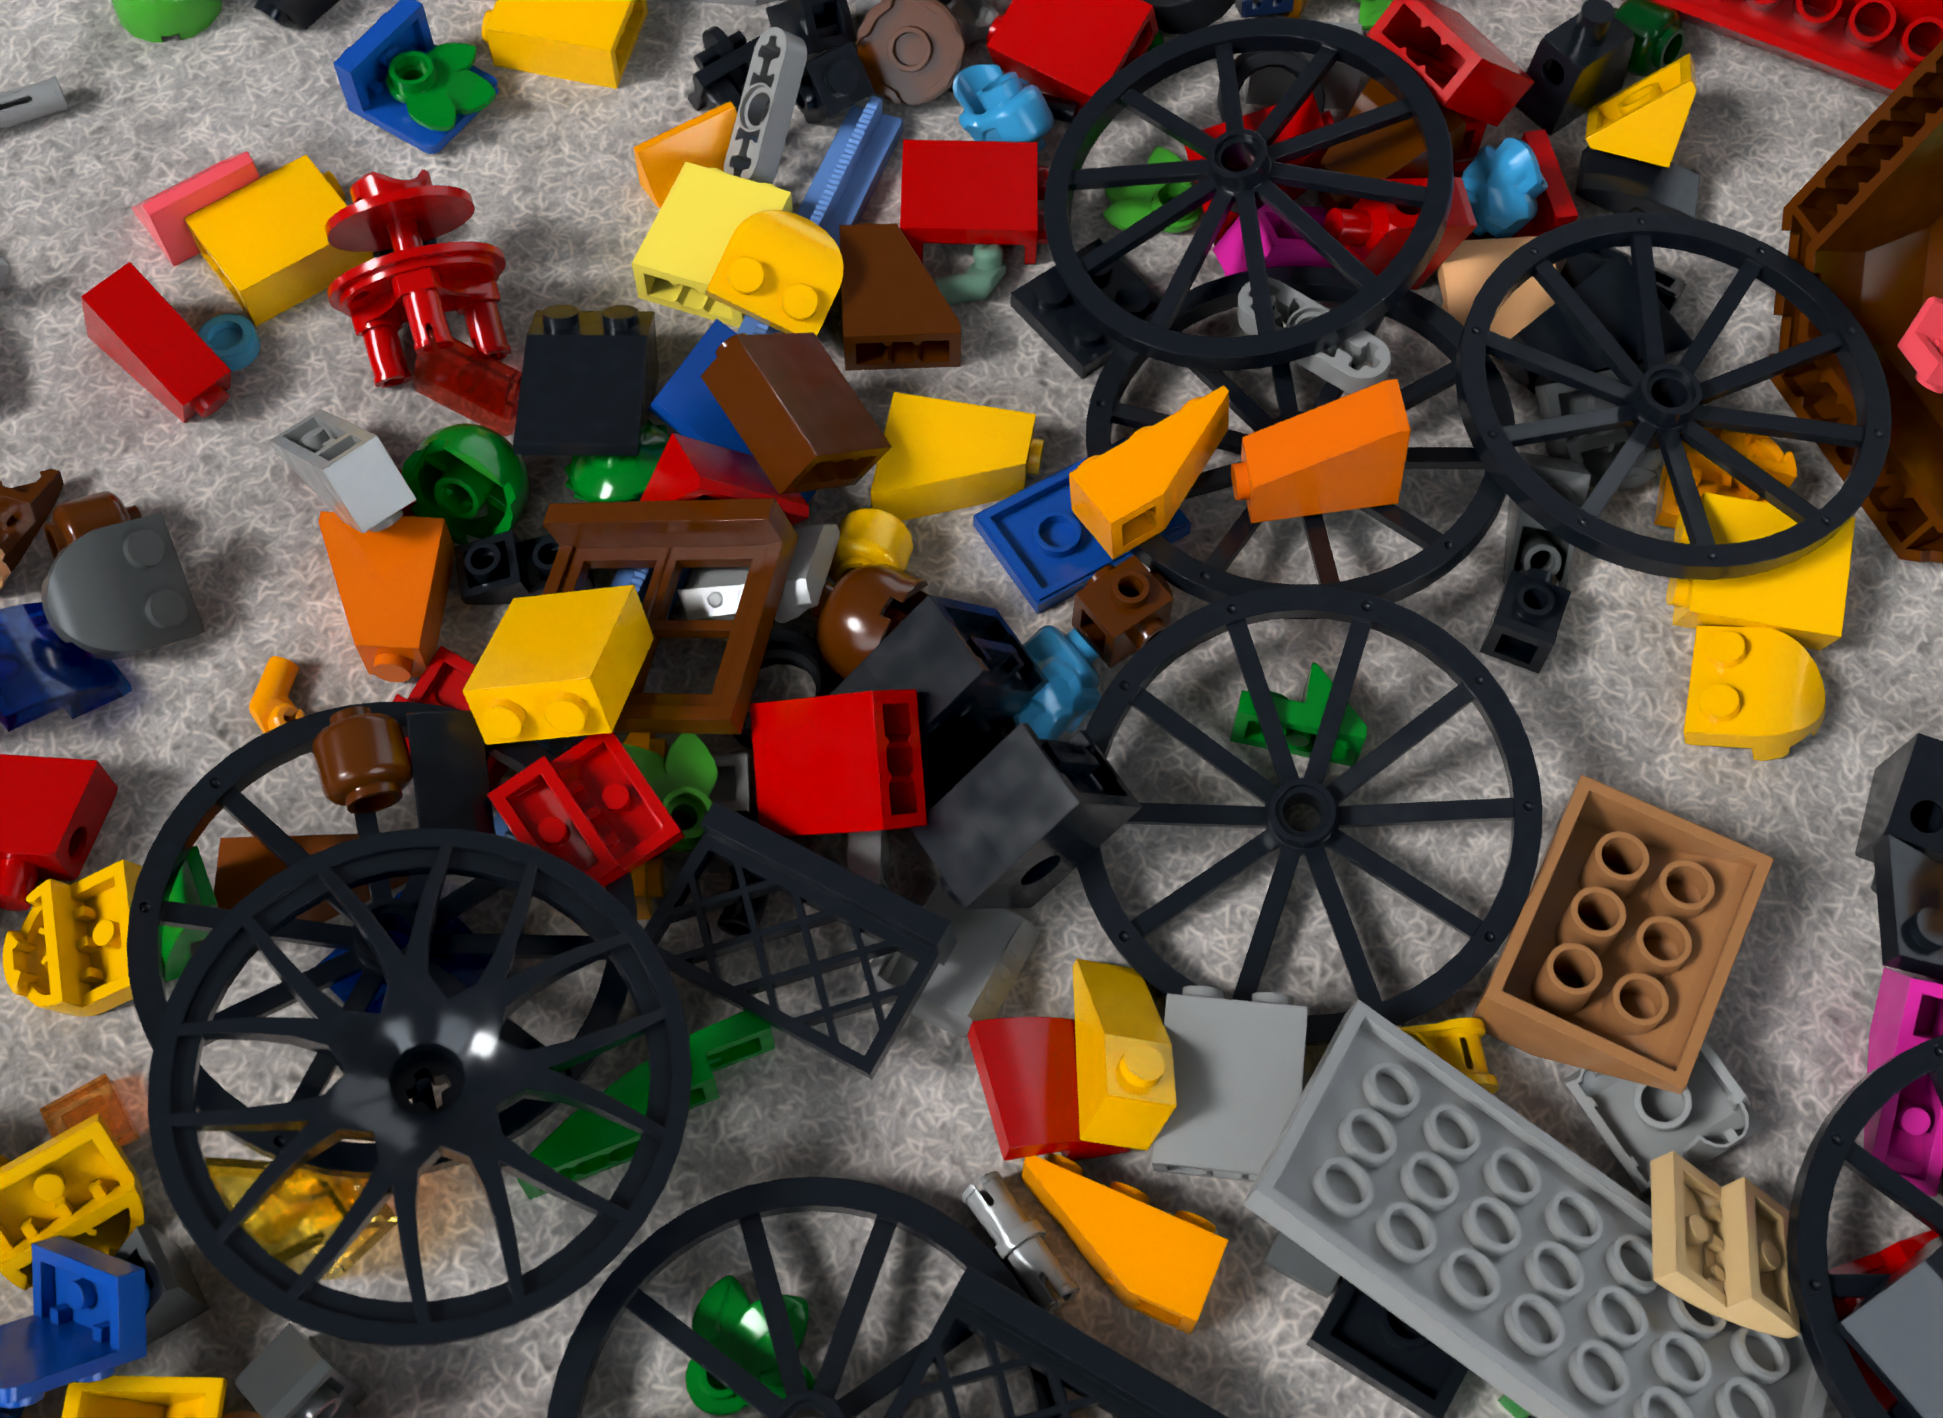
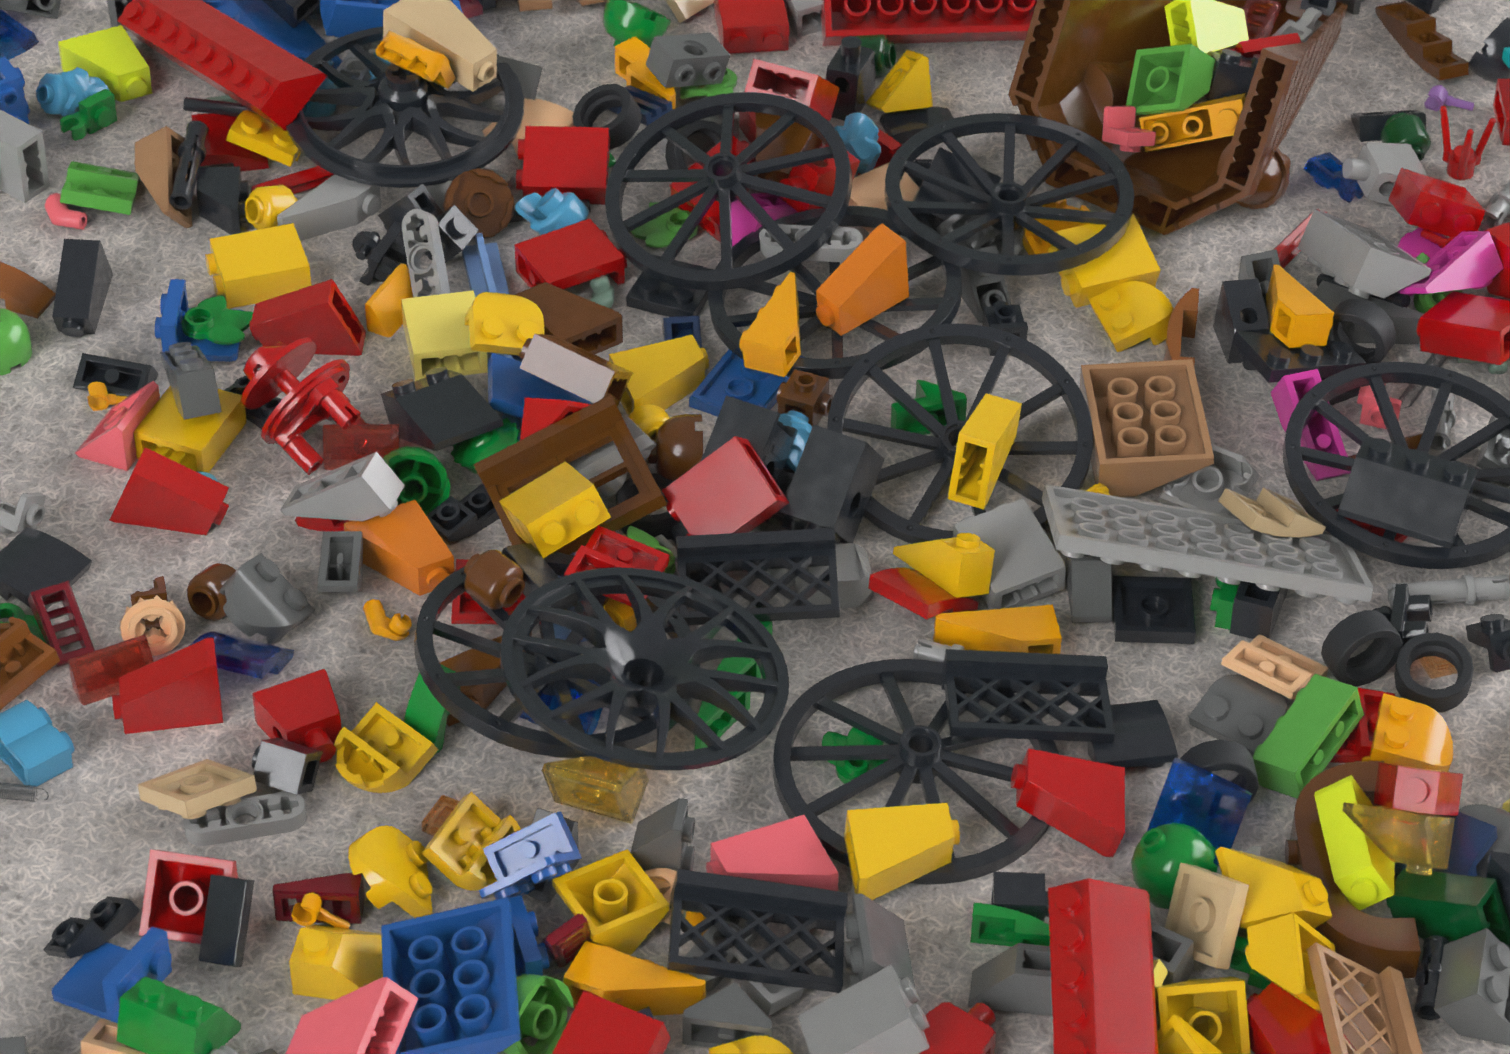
camera: 30 degrees left, 20 degrees down
(223, 136) = (99, 397): none -> light orange hand
(266, 584) = (341, 562): none -> dark grey slope
(268, 111) = (118, 375): none -> black slope
(292, 173) = (191, 380): none -> dark grey slope
(552, 142) = (313, 313): none -> red slope
(1047, 394) = (682, 326): none -> dark blue slope
(1310, 869) = (983, 450): none -> yellow slope
(1823, 748) = (1182, 324): none -> dark orange slope

